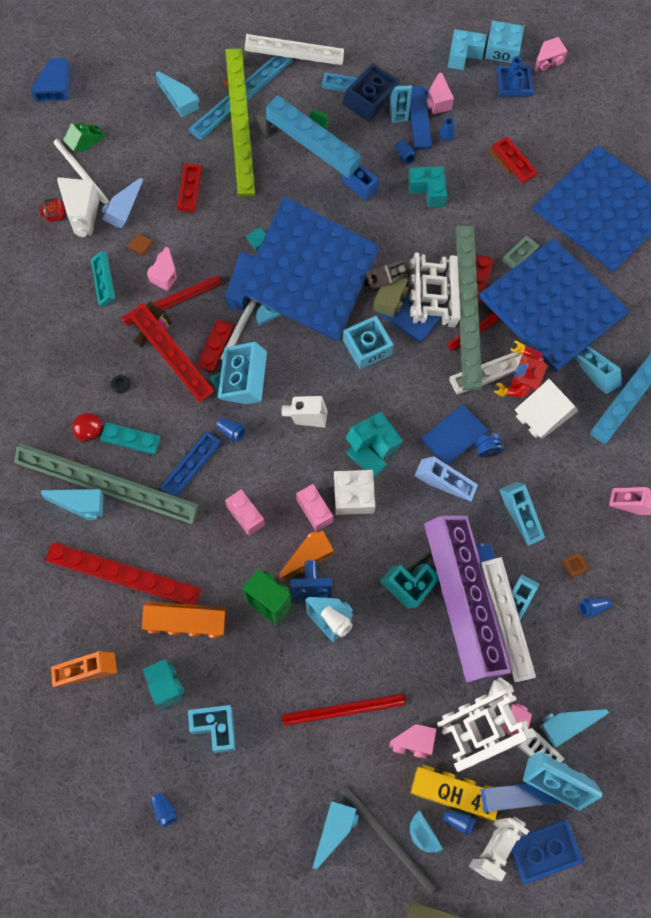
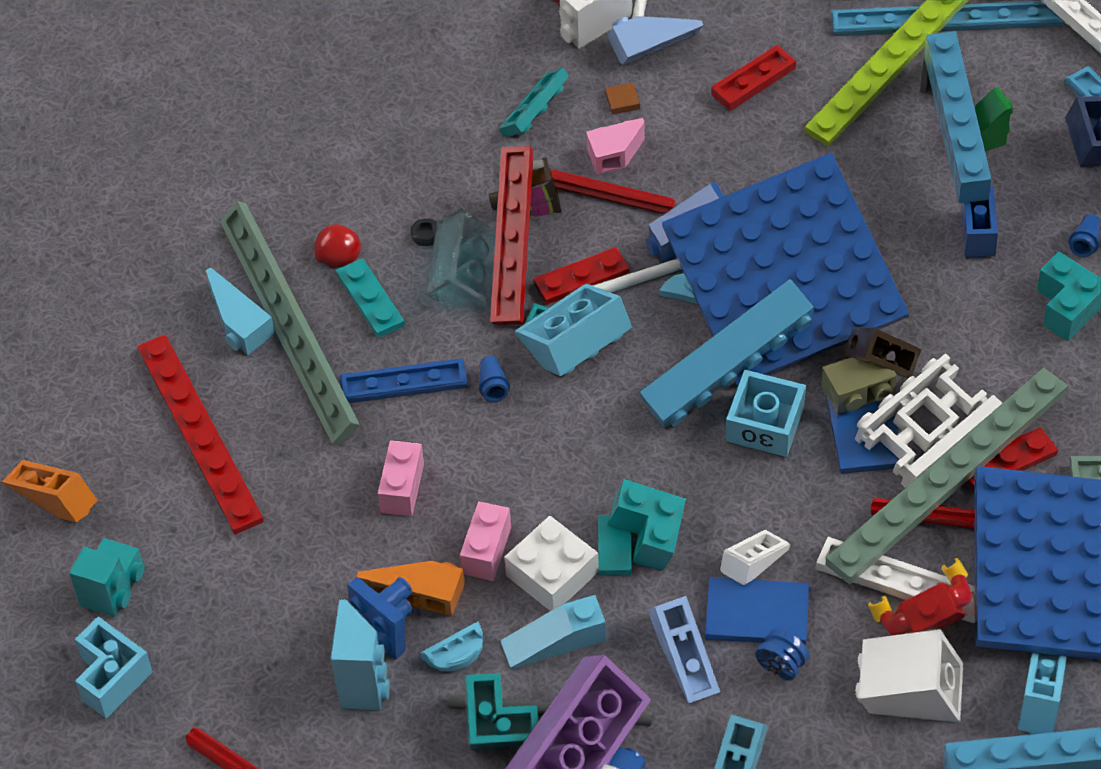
camera: 50 degrees right, 15 degrees down
(157, 384) = (462, 262): none -> clear light blue slope
(184, 618) = (207, 530): orange brick -> none
(267, 596) = (314, 576): green brick -> none
(307, 411) = (596, 421): white torso -> none
(327, 329) = (727, 354): none -> dark azure brick
(337, 622) = (341, 649): white cone -> none
(355, 569) = (455, 651): none -> medium azure plate
(388, 522) = (556, 633): none -> medium azure slope
(429, 412) = (749, 558): none -> white slope

